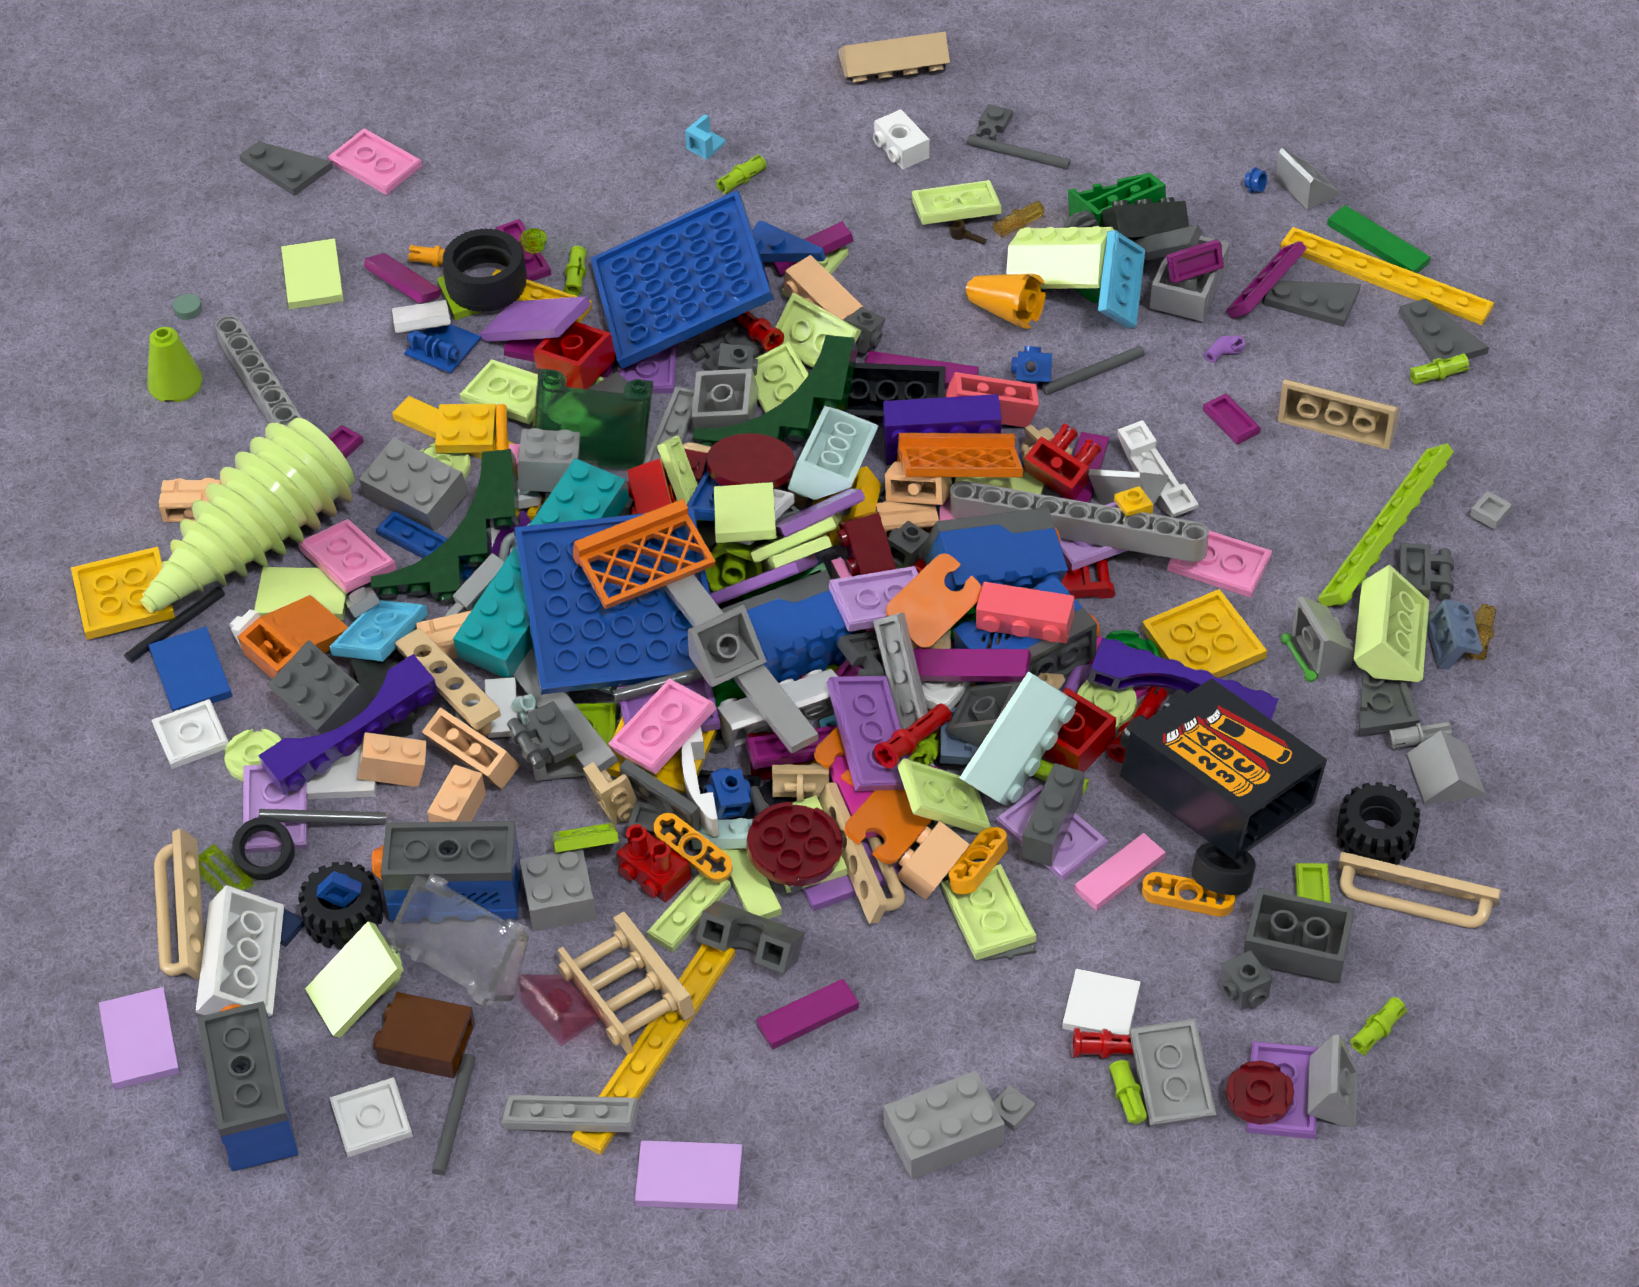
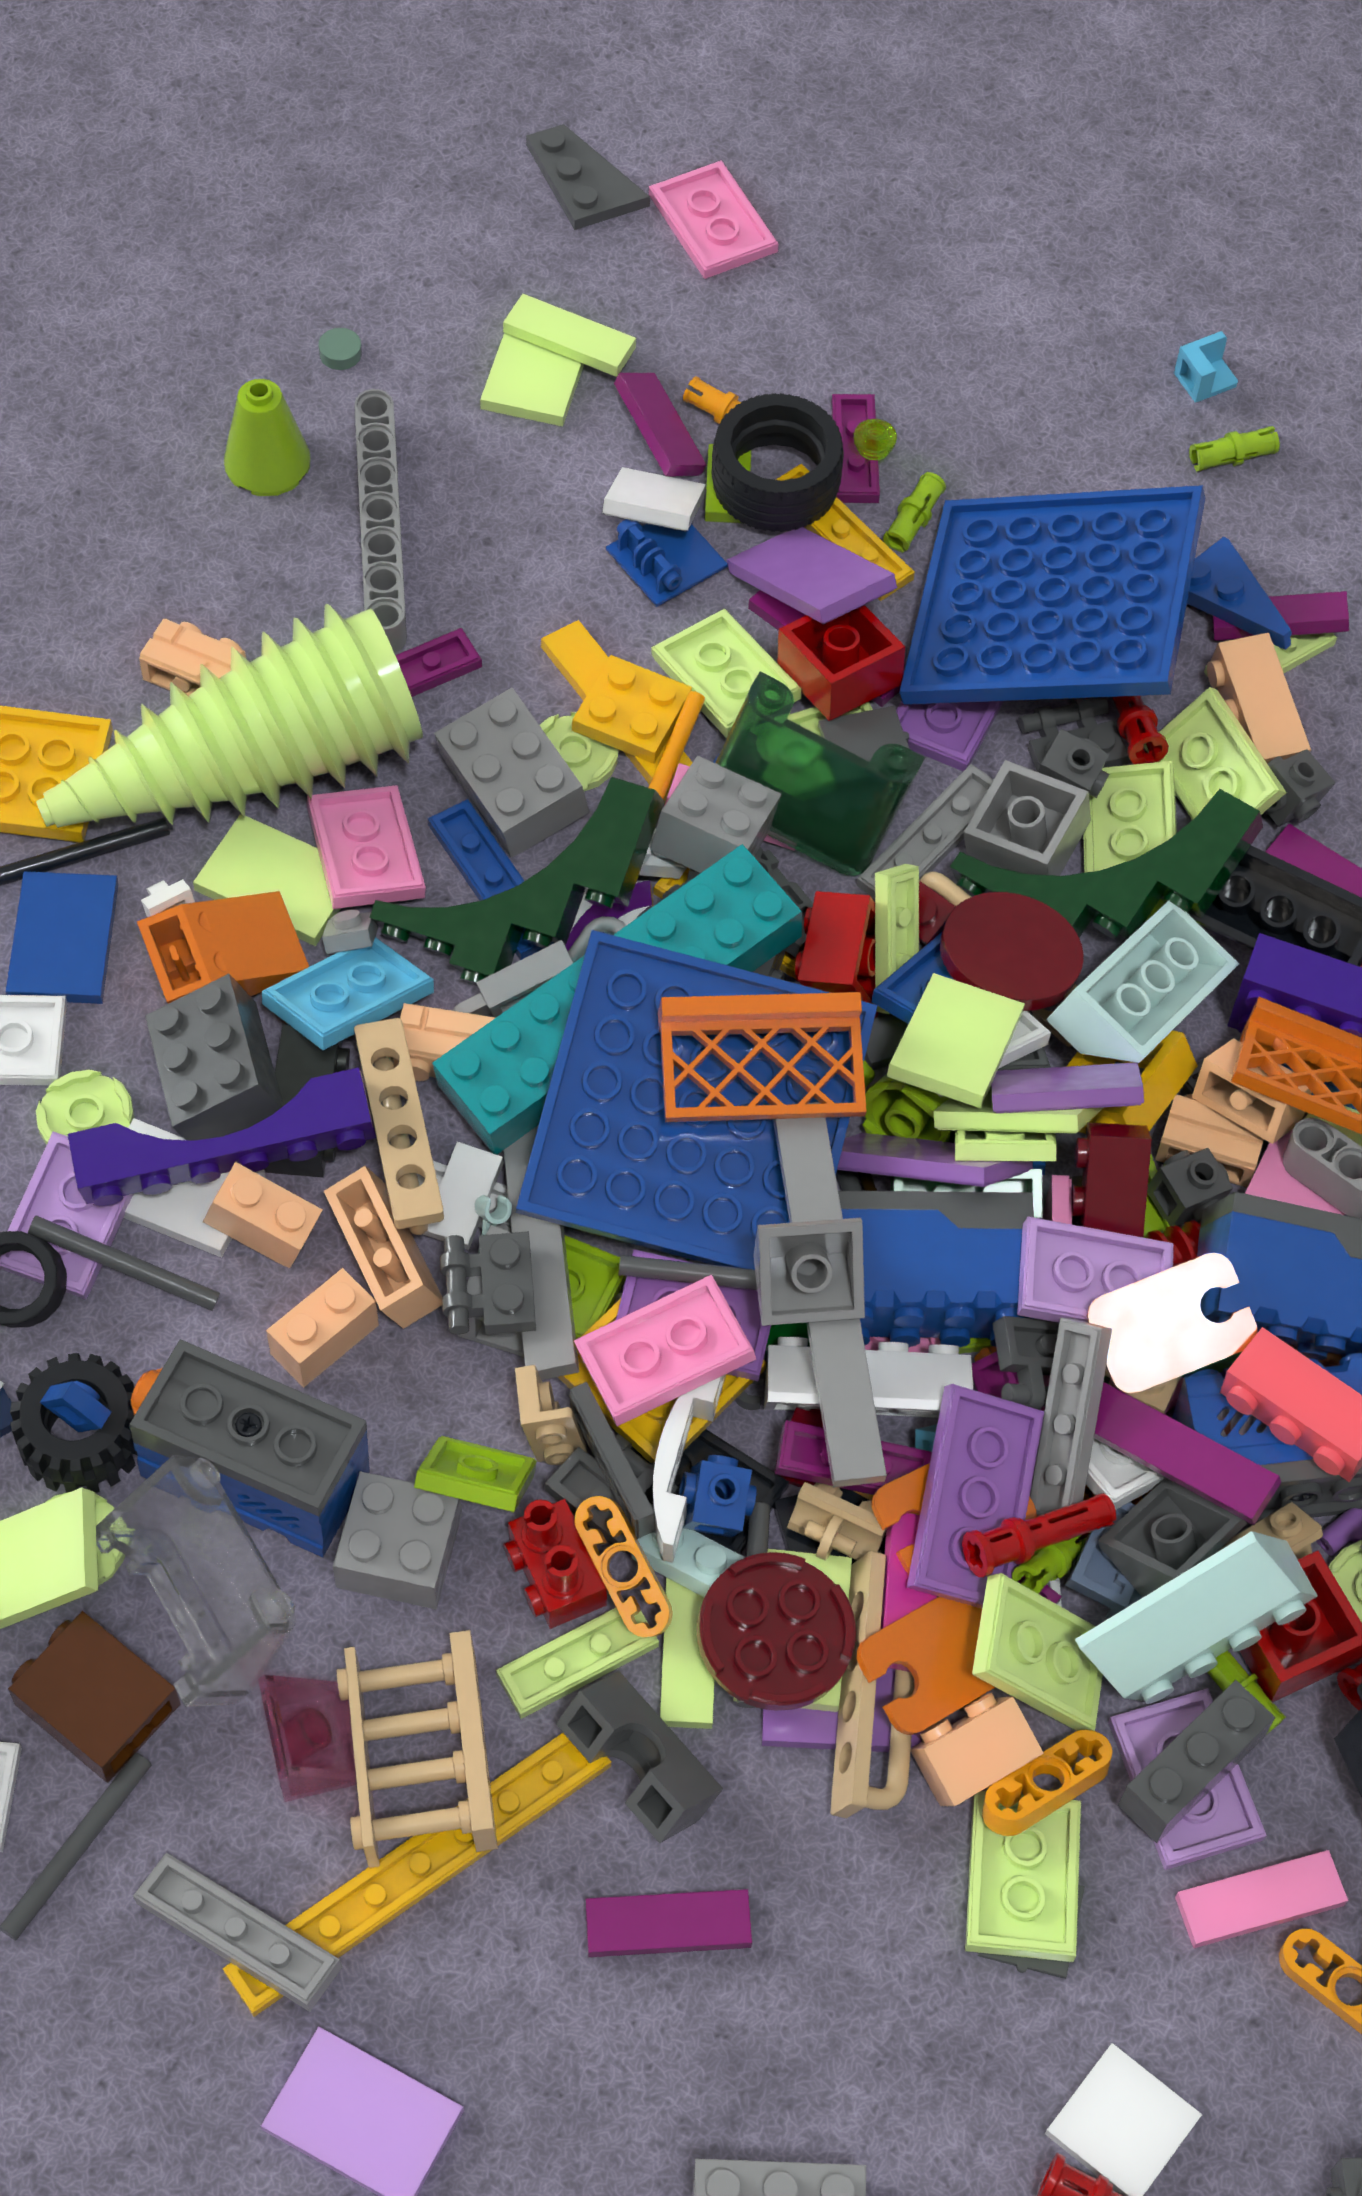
camera: 20 degrees right, 10 degrees up
(324, 249) = (569, 335): none -> yellowish green tile

